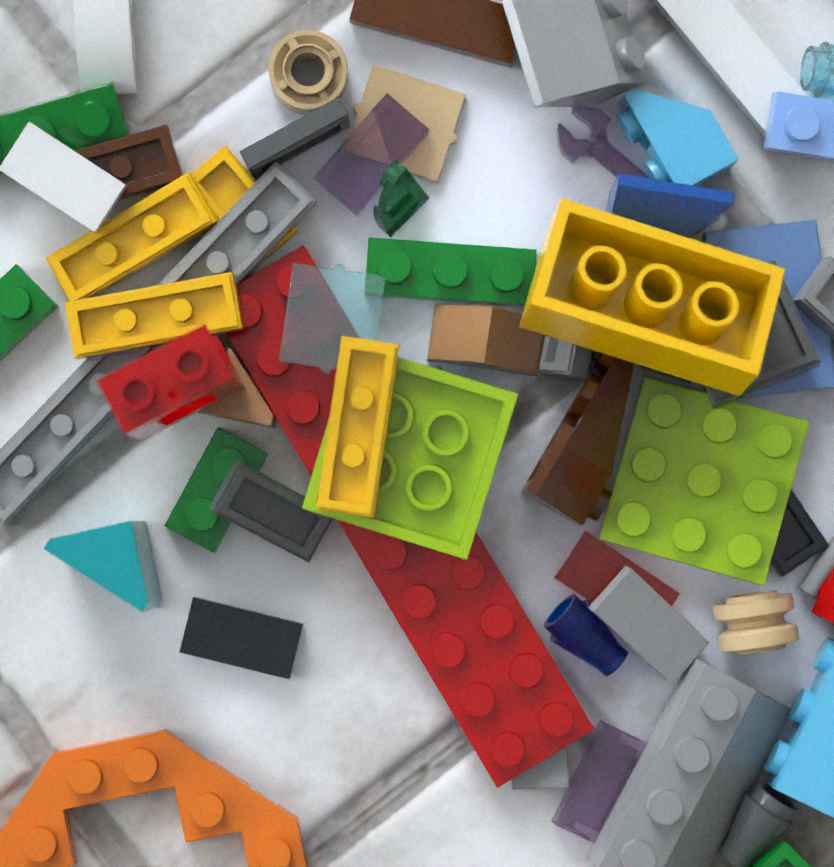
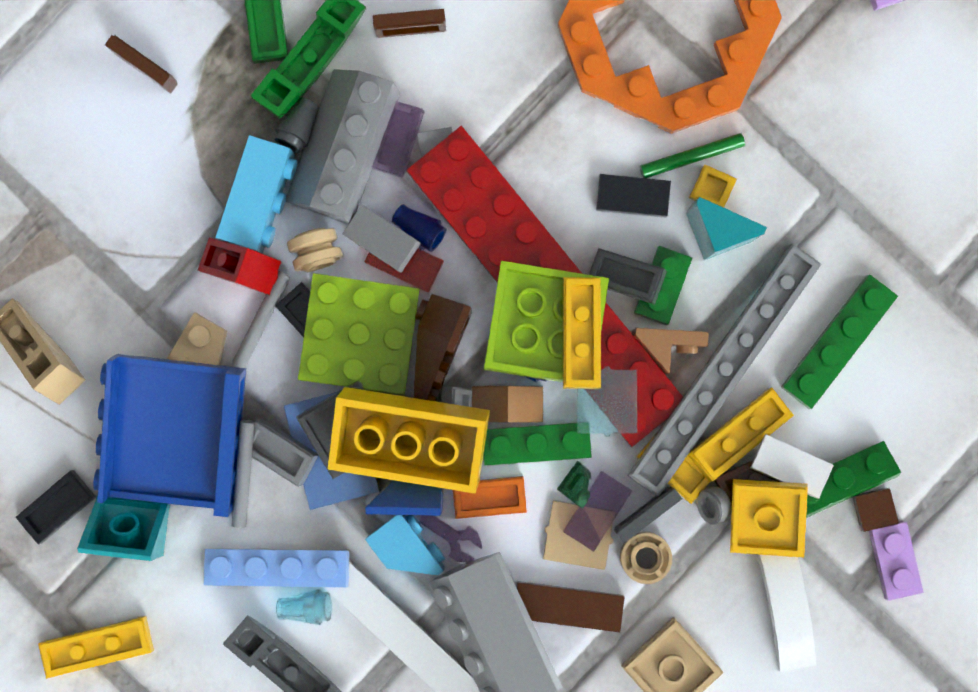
camera: 175 degrees right, 0 degrees up
(111, 103) = (768, 518): none -> yellow tile
(115, 631) = (713, 186): none -> yellow tile
(138, 688) = (692, 155): none -> green bar
(153, 315) = (719, 387): yellow tile -> none
(154, 388) = (703, 340): red panel -> none
(191, 136) = (714, 505): none -> light grey tile
(527, 197) = (492, 498): none -> orange tile

